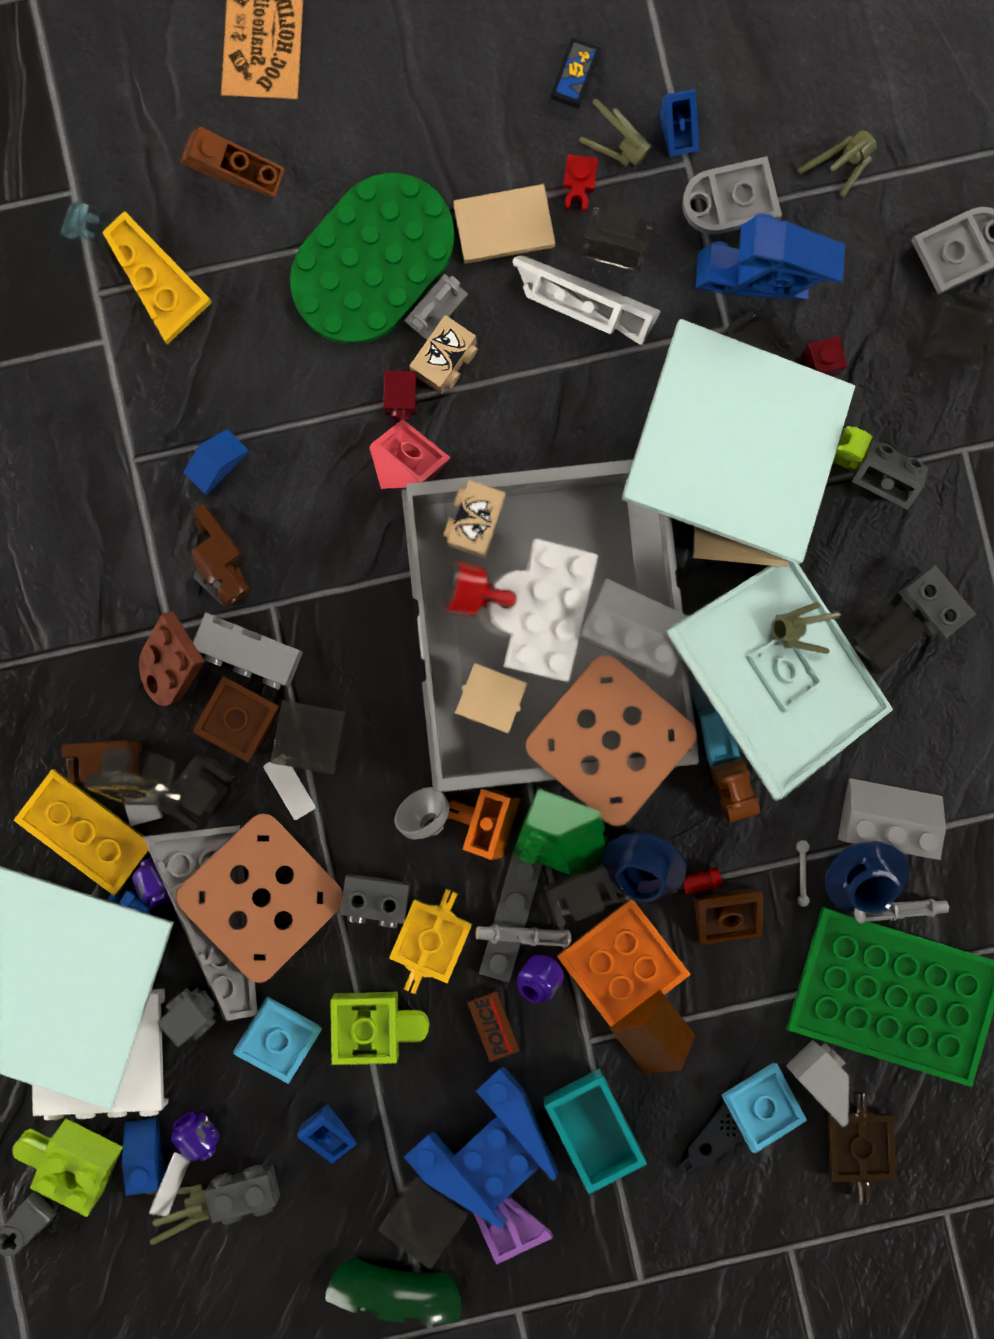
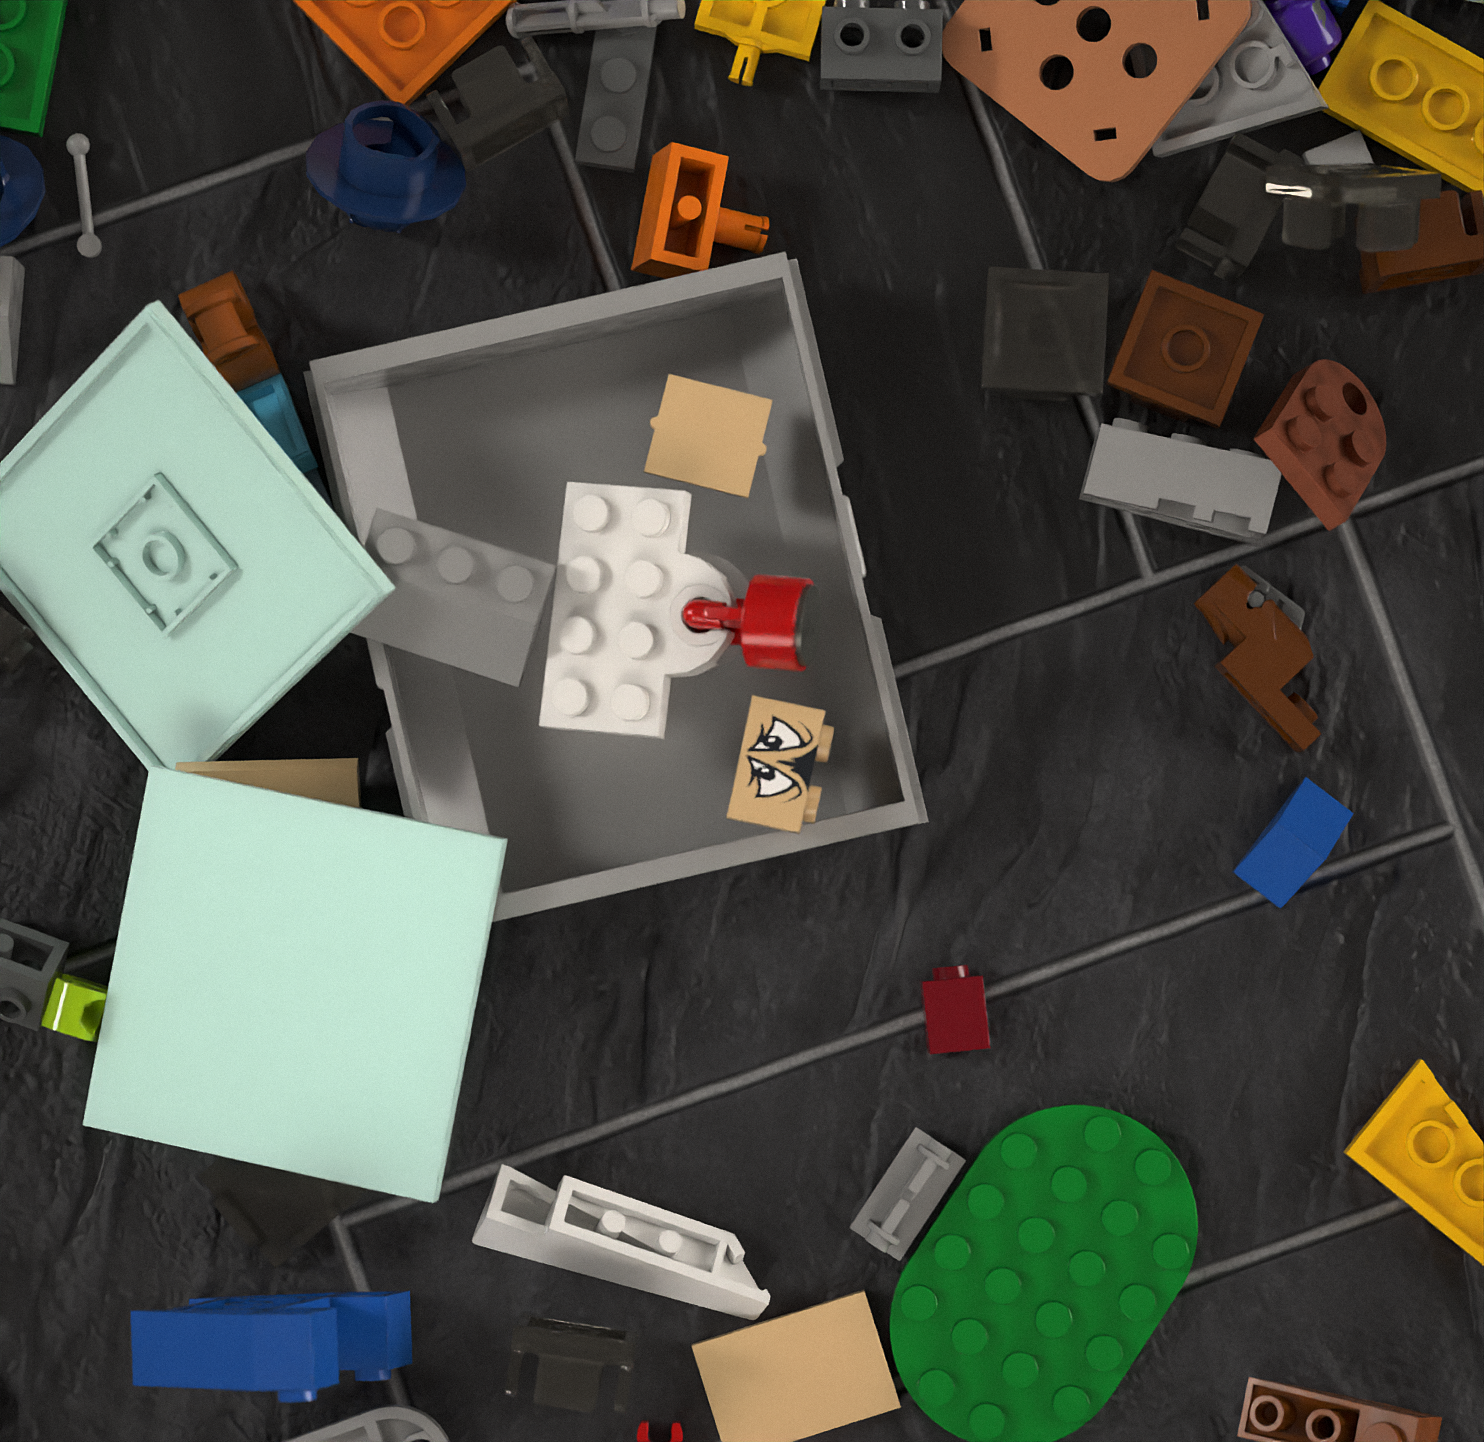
camera: 175 degrees right, 0 degrees up
(290, 789) = (1068, 234): white sticker -> none
(405, 457) = (927, 888): coral slope -> none
(419, 809) = (823, 224): light grey piece -> none
(444, 354) = (879, 1099): tan brick -> none
(560, 834) = (550, 202): green wedge -> none
(646, 737) = (462, 320): nougat piece -> none
(702, 880) = (272, 157): red pin -> none
(729, 915) = (215, 100): reddish brown slope -> none
(791, 627) = (161, 636): olive plant -> none
(825, 356) = (145, 1178): dark red brick -> none

